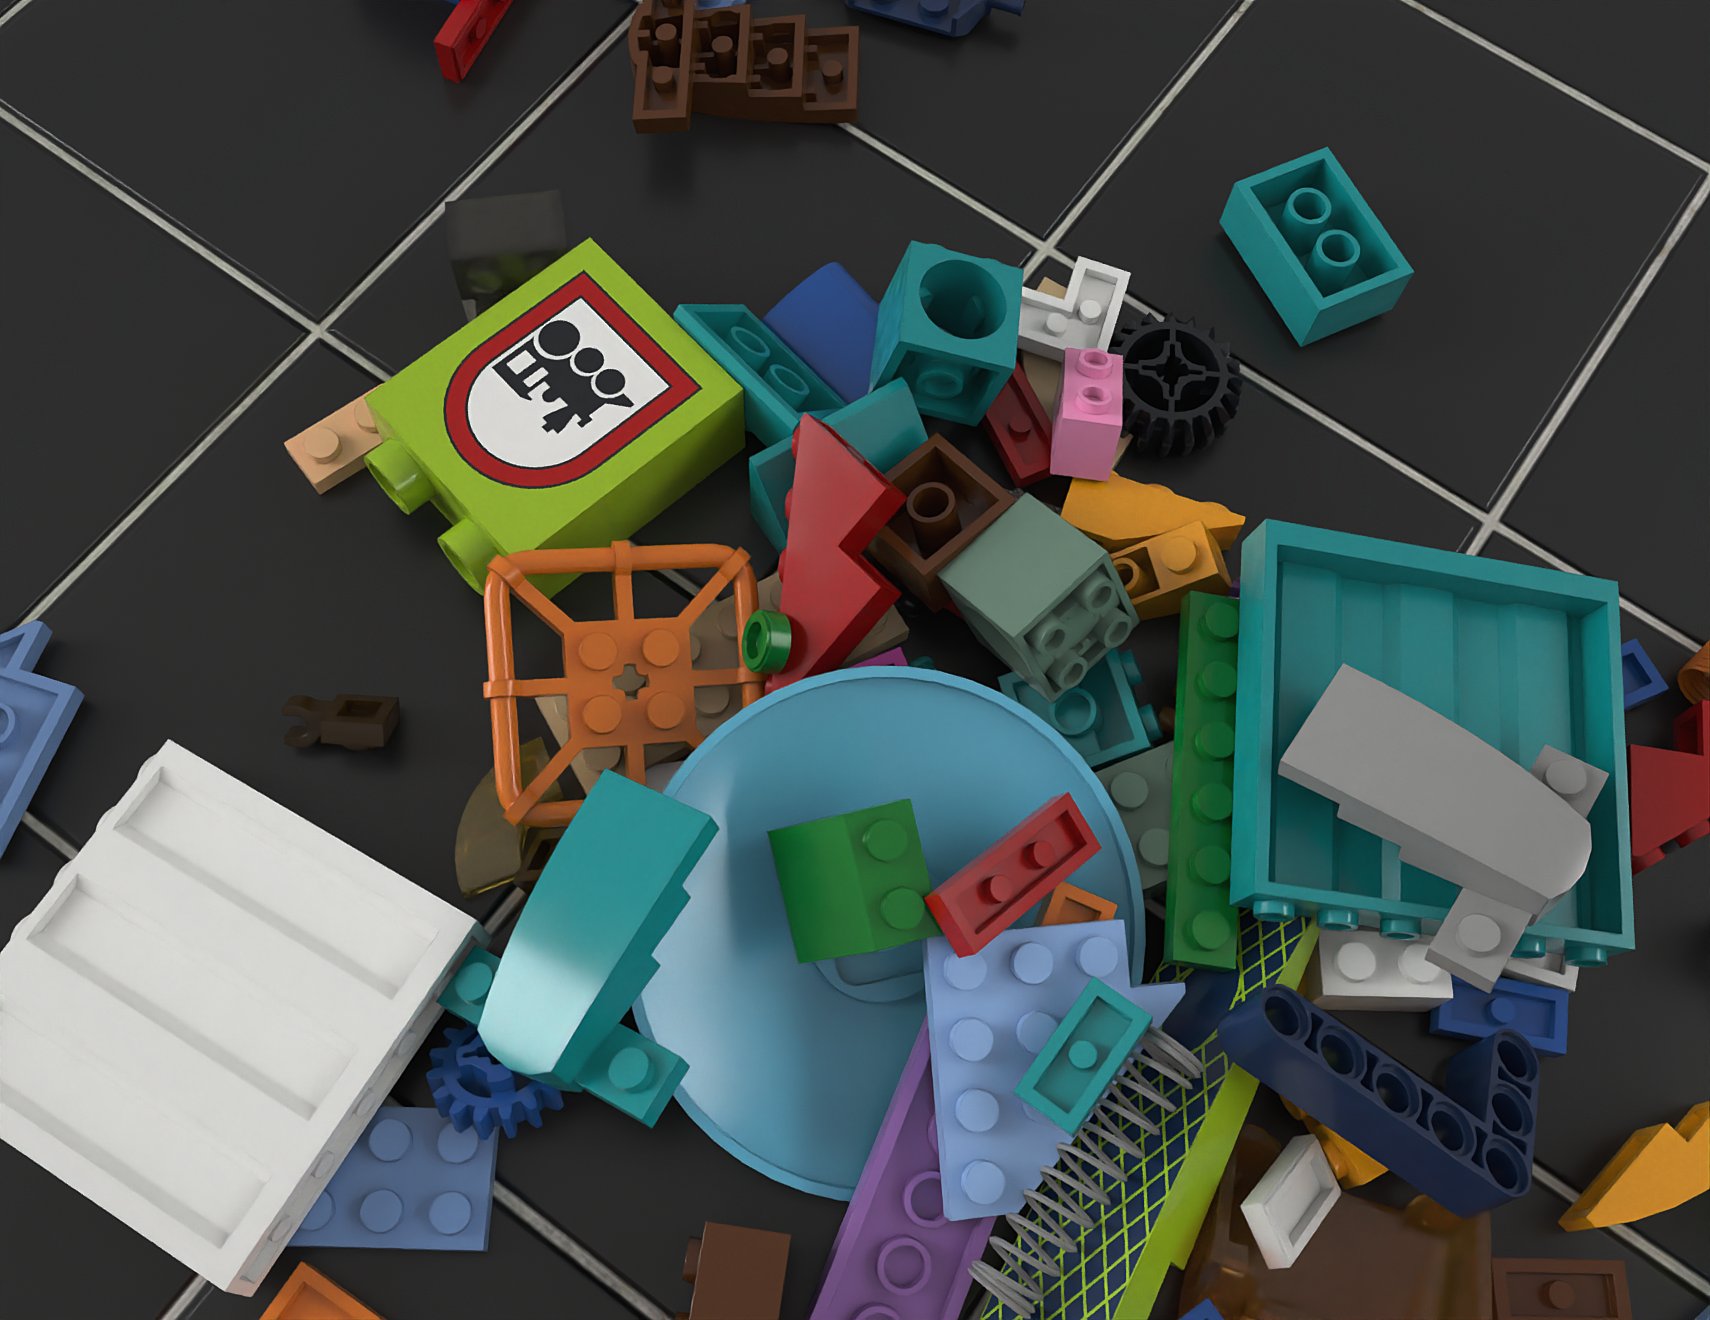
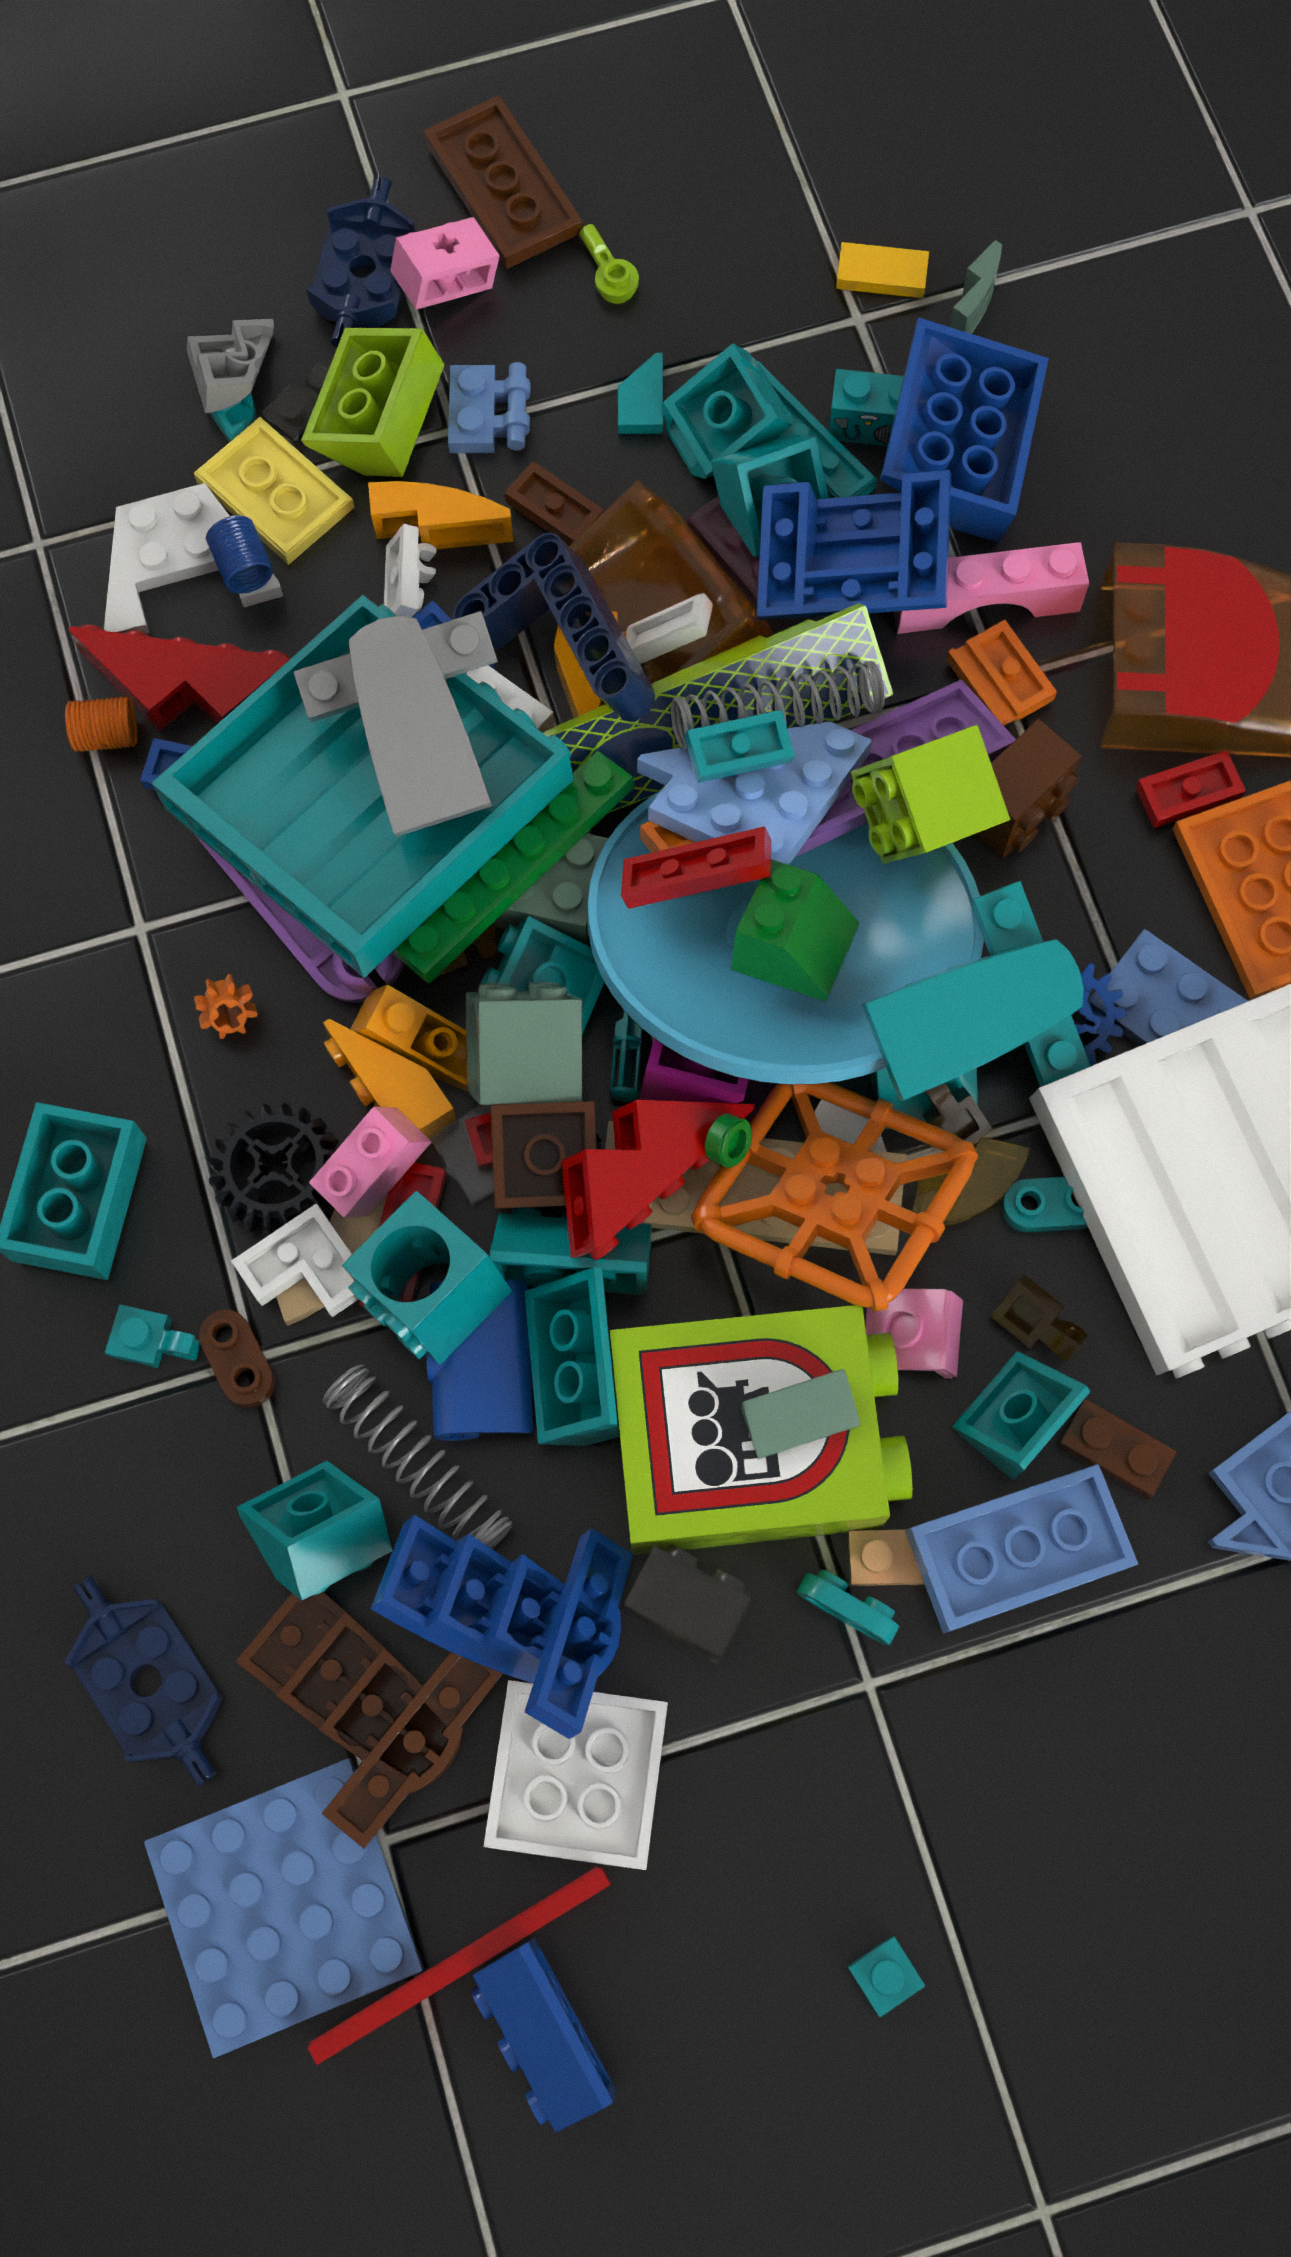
camera: 135 degrees left, 5 degrees up
(166, 136) = (886, 1976): none -> teal plate
(193, 659) = (1117, 1448): none -> reddish brown plate
(232, 496) = (1020, 1548): none -> medium blue plate
(304, 618) = (1019, 1413): none -> teal slope
(365, 357) = (867, 1617): none -> teal plate
(400, 851) = (1054, 1206): none -> teal plate
(450, 637) = (923, 1329): none -> bright pink piece
(508, 420) = (800, 1414): none -> sand green slope
(523, 114) = (580, 1794): none -> white plate
(657, 151) = (512, 1613): none -> blue slope
(728, 235) = (359, 1384): none -> light grey piece
(825, 1167) = (929, 795): none -> lime brick
(877, 133) = (316, 1529): none -> teal slope
(1057, 231) = (235, 1357): none -> reddish brown plate
(1145, 198) = (146, 1335): none -> teal plate
(1346, 485) = (234, 998): none -> orange gear
(1599, 1039) = (406, 571): none -> white plate

